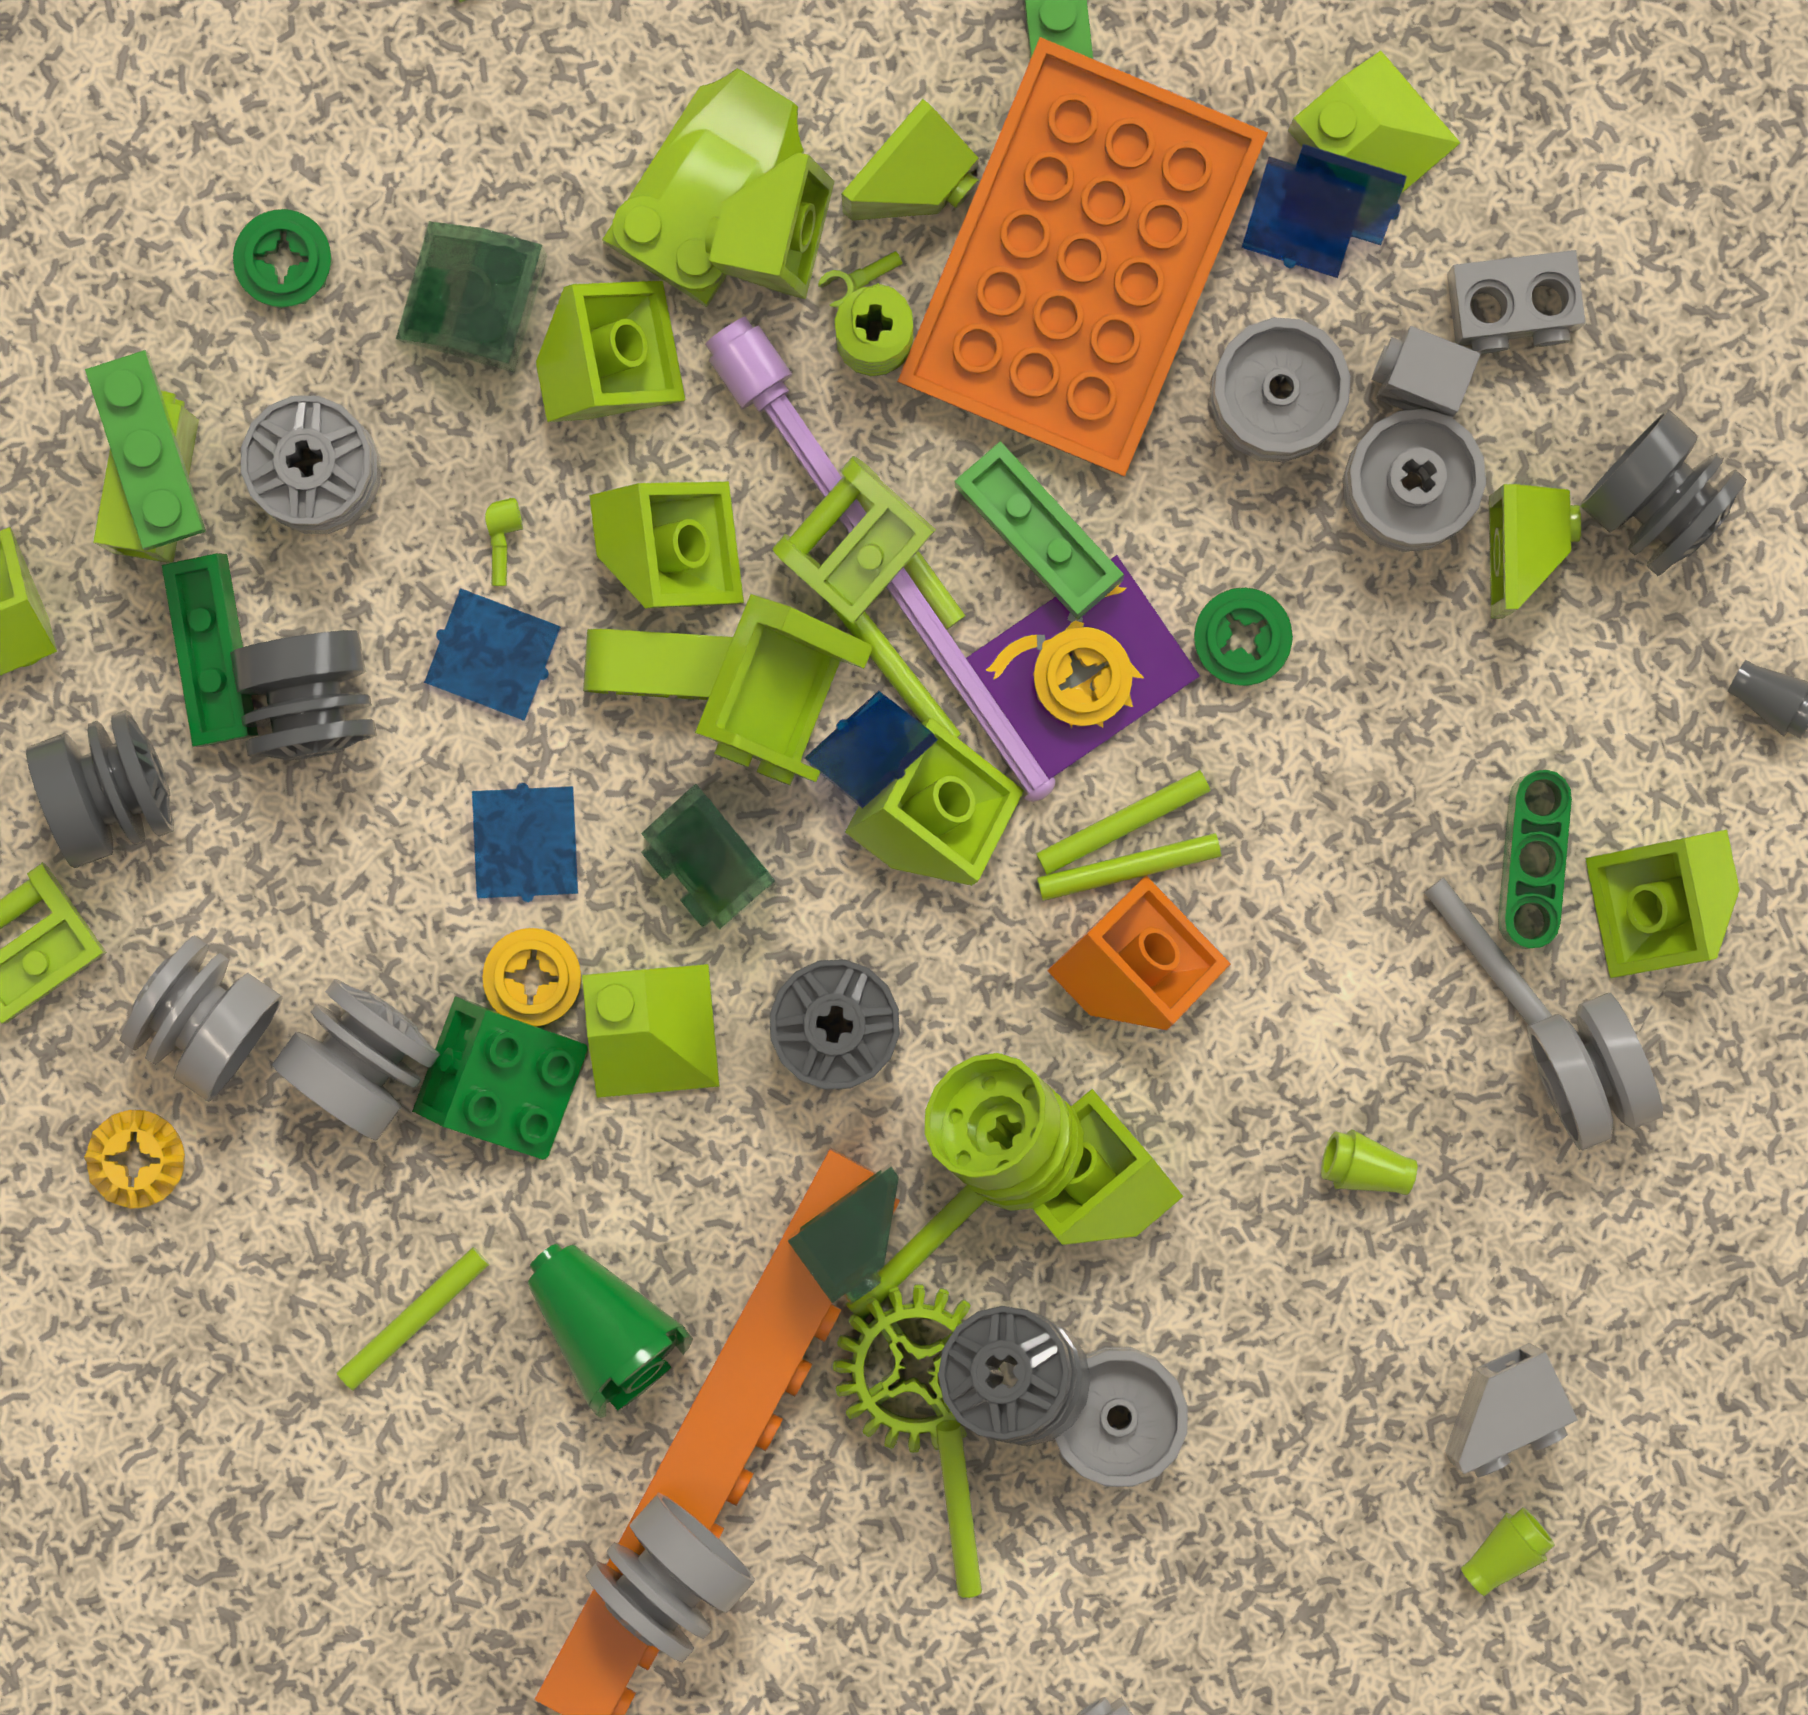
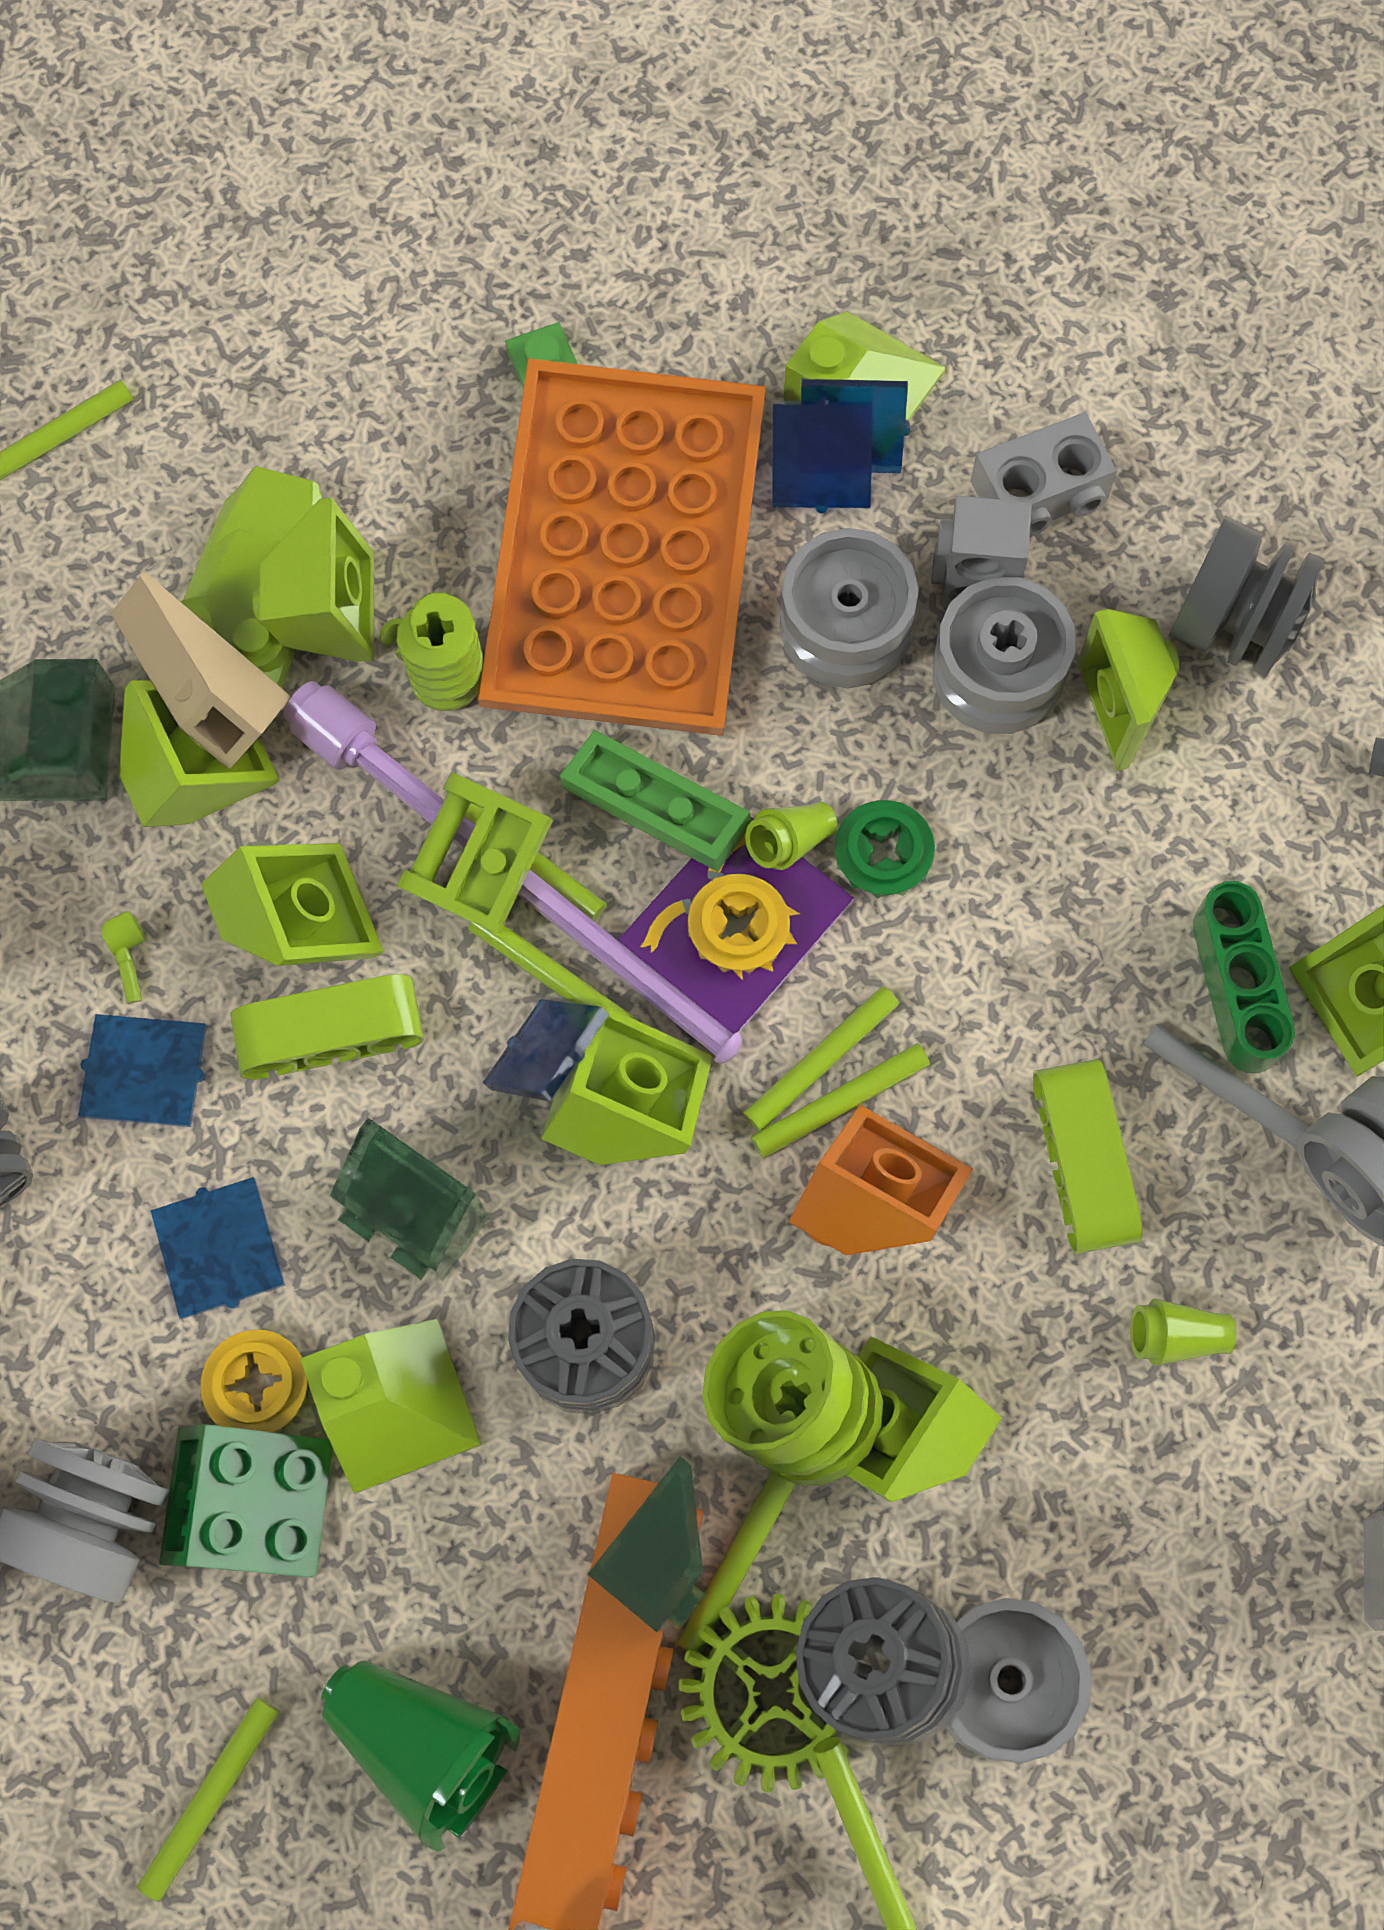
camera: 10 degrees left, 15 degrees down
(637, 292) = (199, 675): none -> tan slope
(775, 687) = (433, 1010): lime panel -> none
(913, 171) = (438, 507): lime slope -> none
(1153, 602) = (787, 833): none -> lime cone
(1337, 984) = (1090, 1156): none -> lime beam

